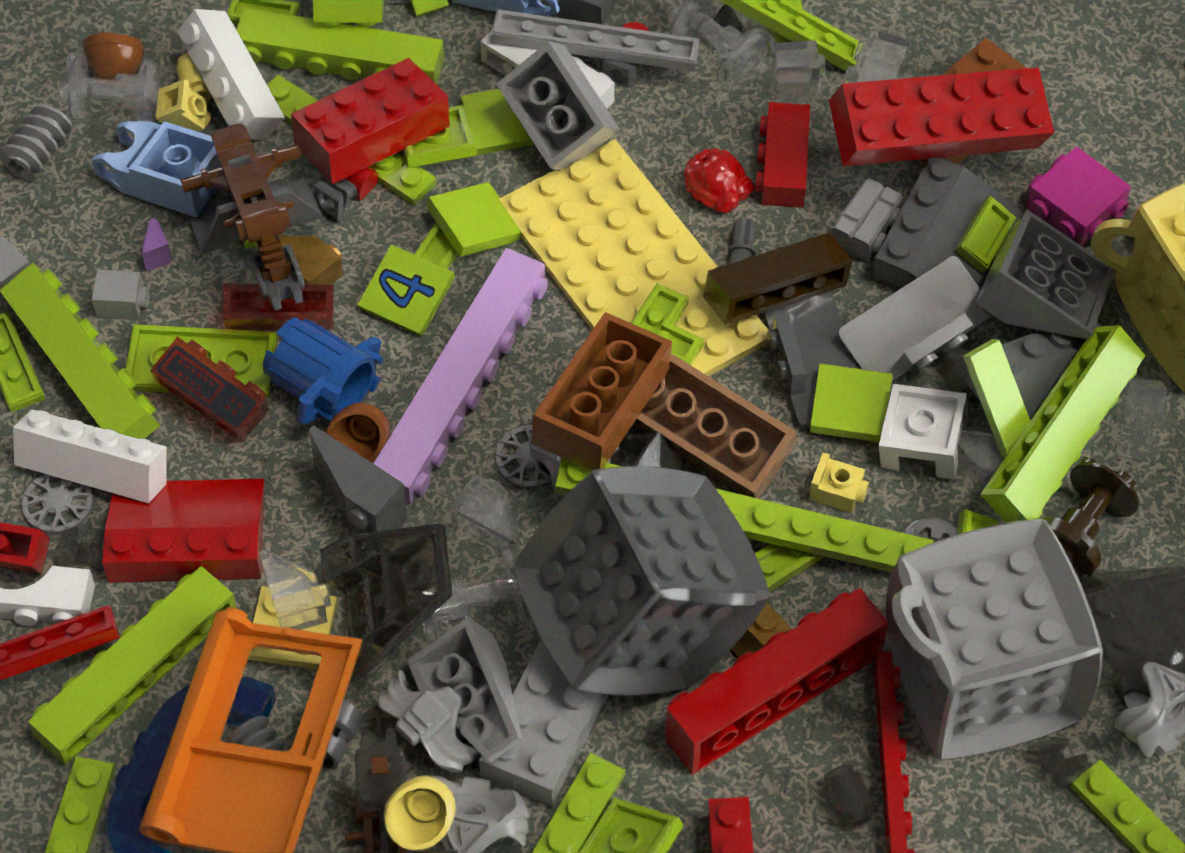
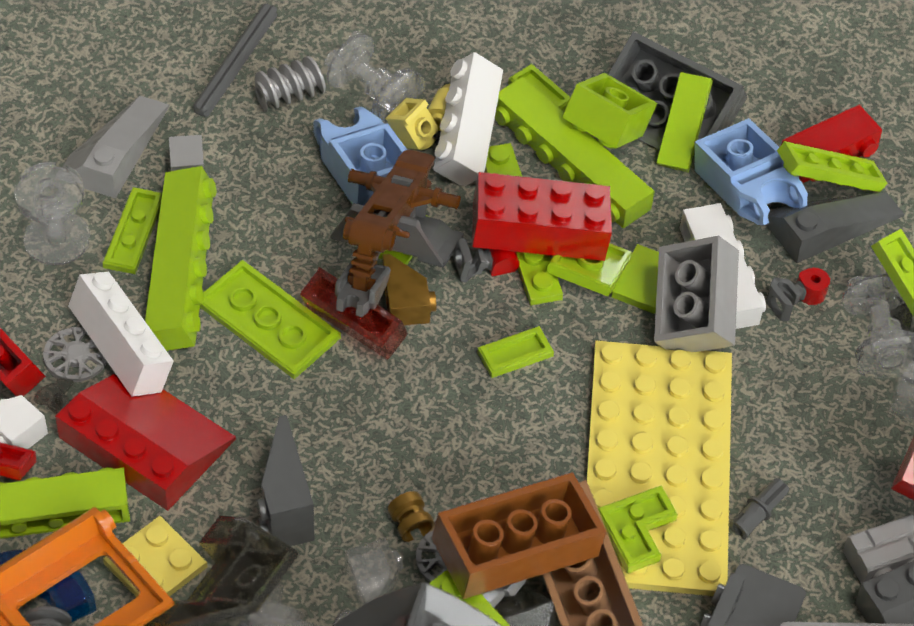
camera: 35 degrees right, 5 degrees down
(113, 54) = (397, 52): dark orange hat -> none
(119, 295) = (249, 231): light grey brick -> none
(155, 247) = (306, 212): medium lavender slope -> none
(210, 388) = (250, 342): brick -> none
(294, 592) = (167, 536): clear slope -> none
(322, 369) = (342, 383): blue container -> none
(361, 429) = (325, 447): dark orange hat -> none
(406, 290) = (463, 365): lime tile -> none
(461, 371) = (446, 455): lavender brick -> none
(473, 219) = (563, 343): lime tile -> none
(473, 443) = (410, 514): none -> pearl gold wheel
(596, 40) = (777, 265): light grey tile -> none
(717, 180) = (787, 437): red hair -> none
(777, 278) = (765, 546): dark brown brick -> none
(784, 154) = (862, 452): red brick -> none

